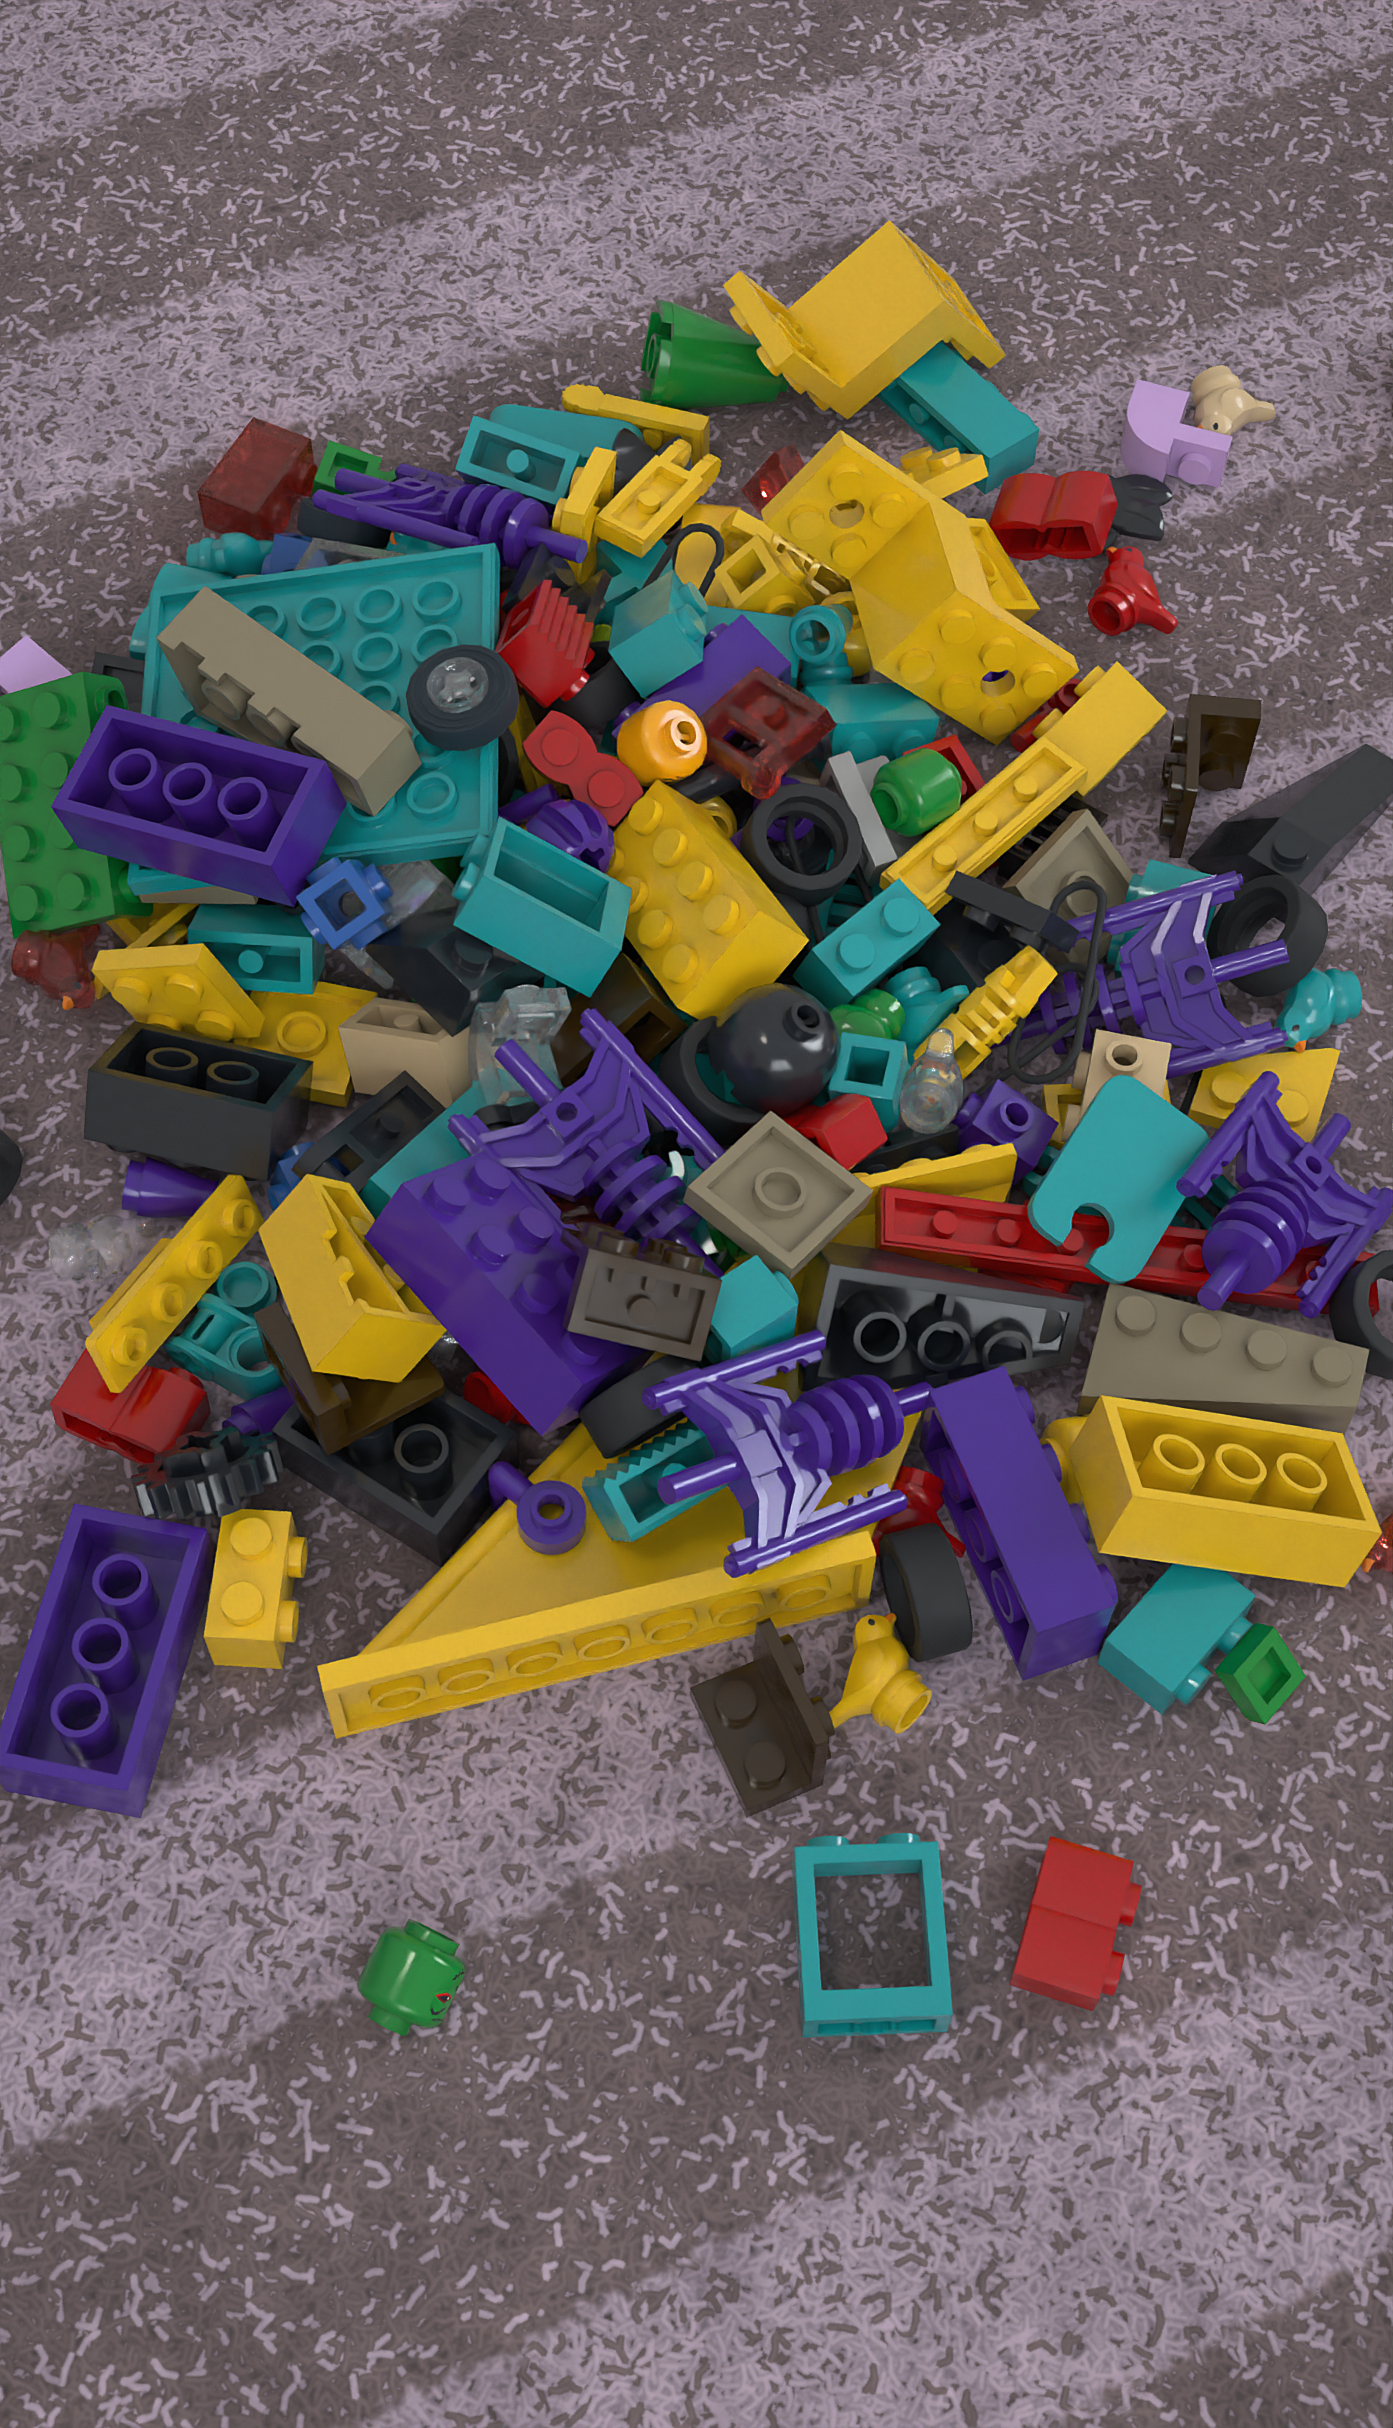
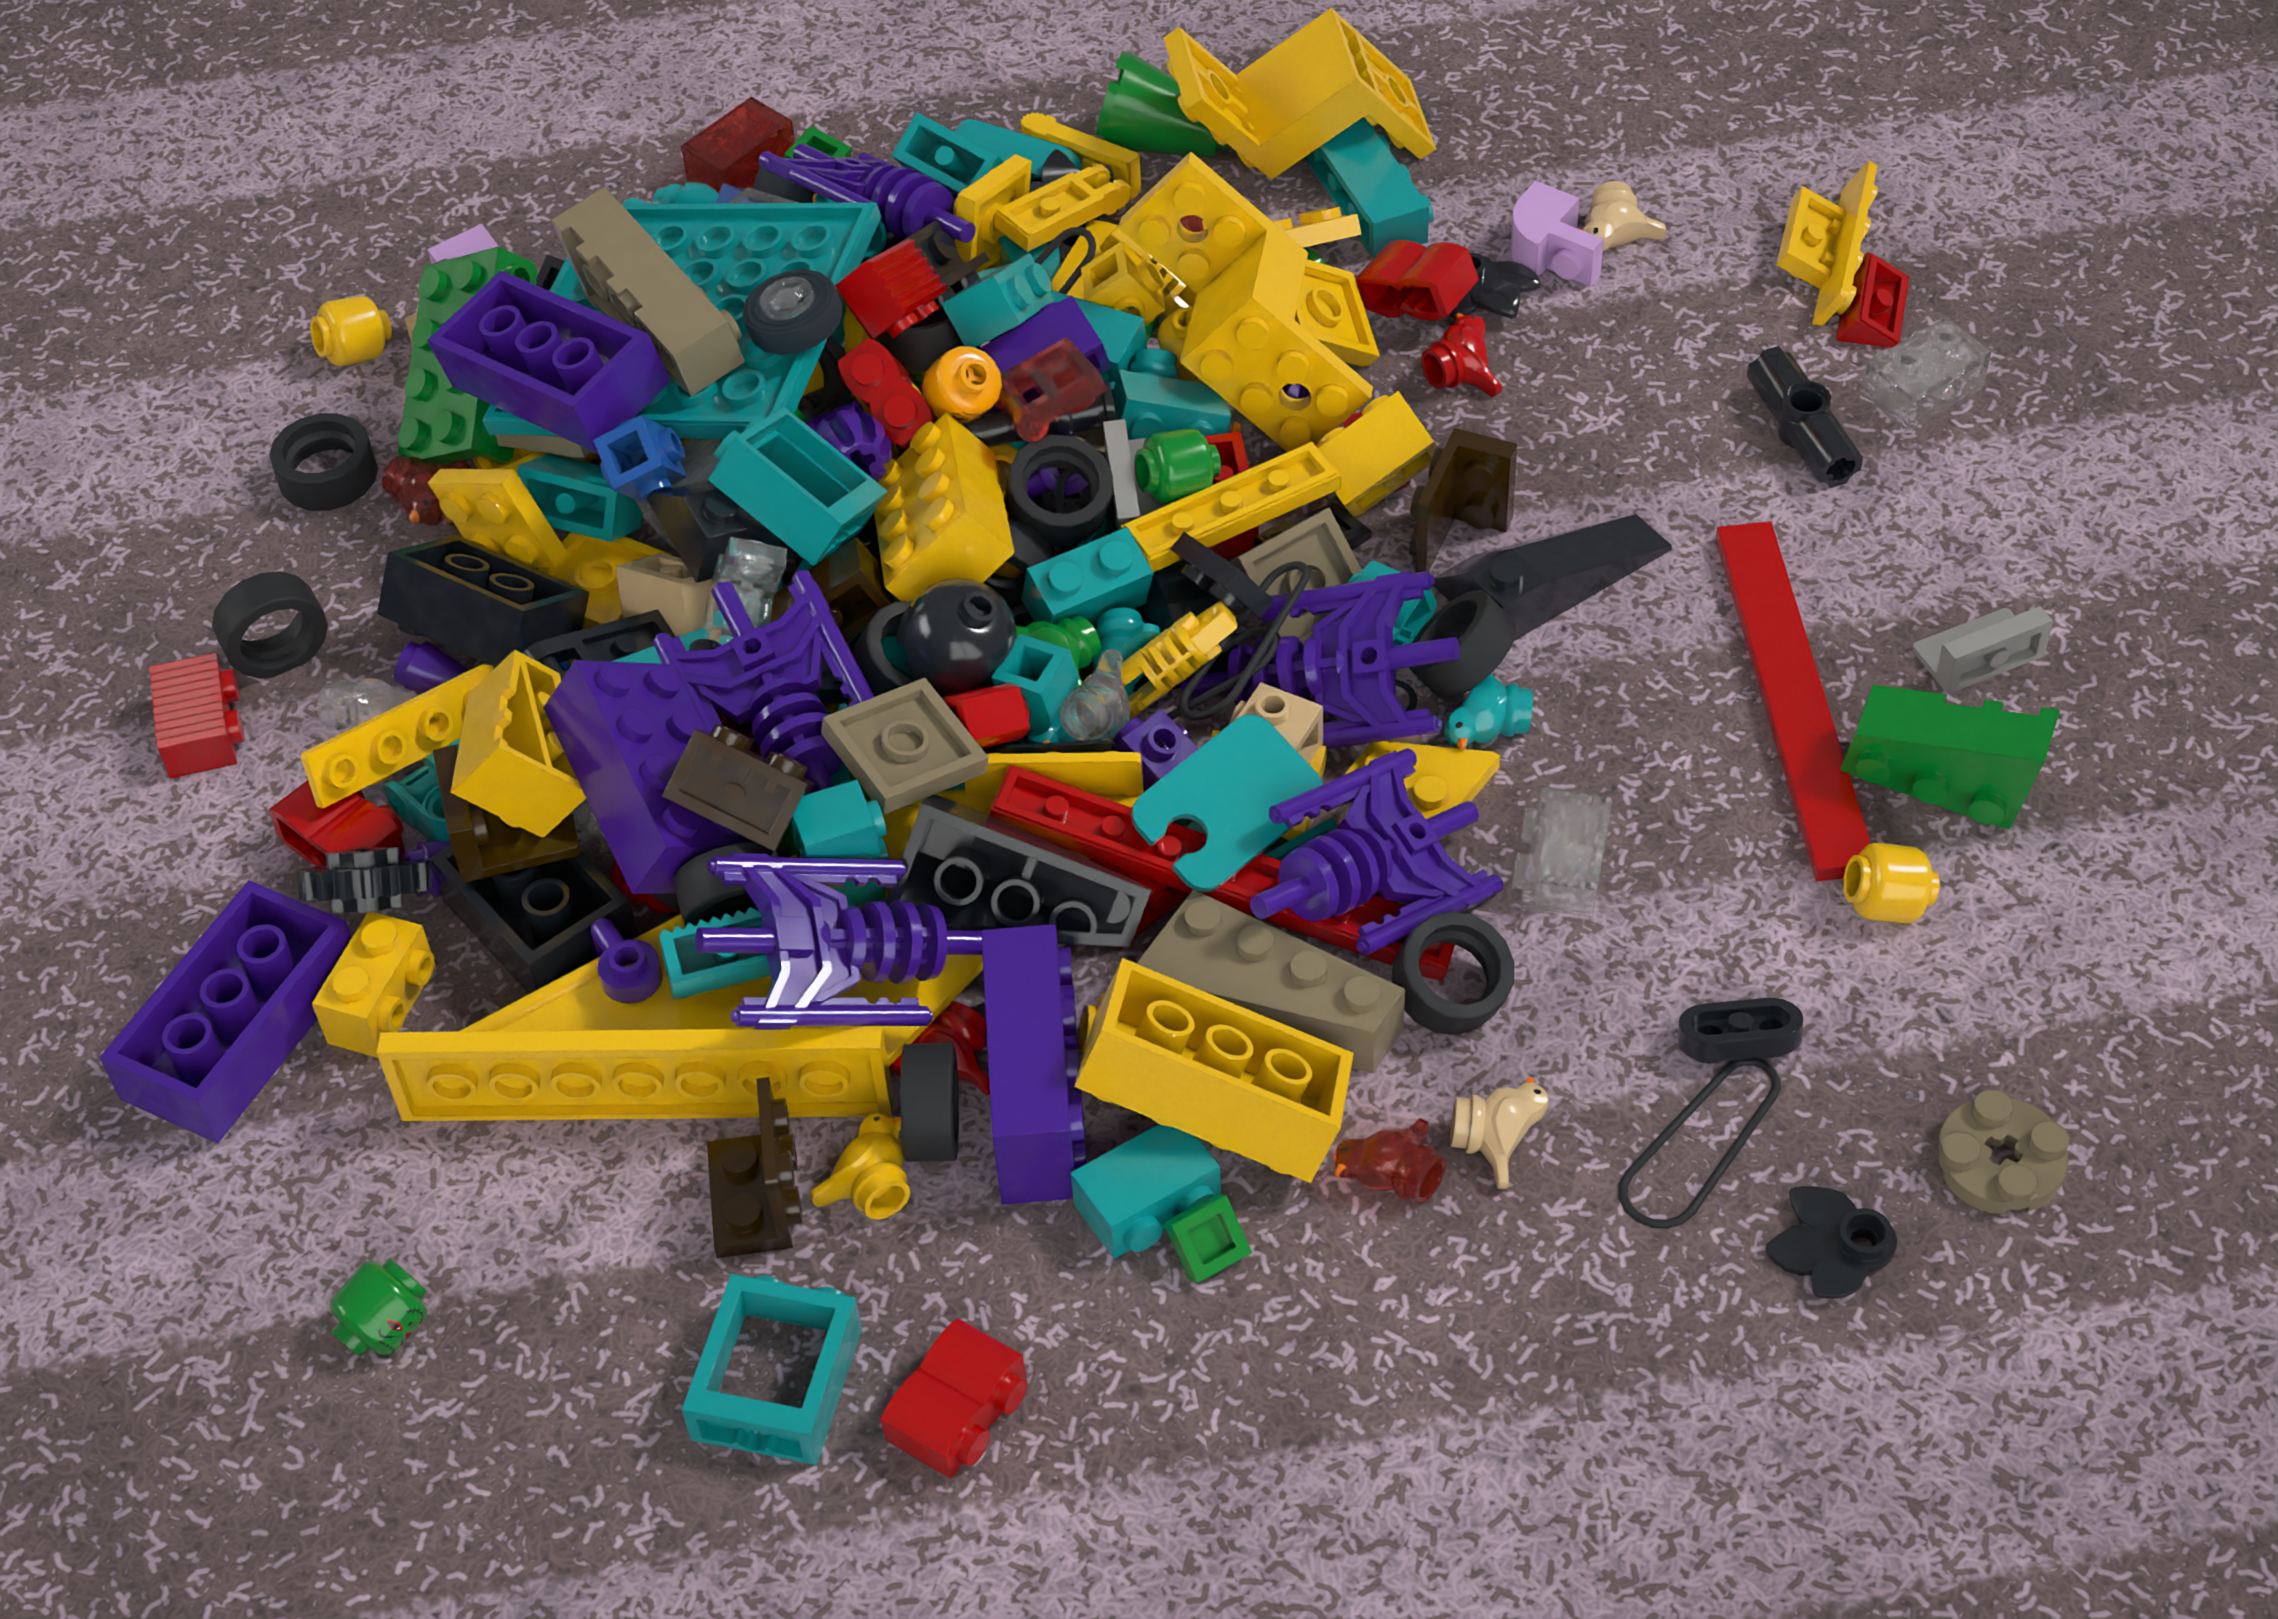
camera: 20 degrees right, 10 degrees down
(820, 632) = (1148, 327): teal cone -> none

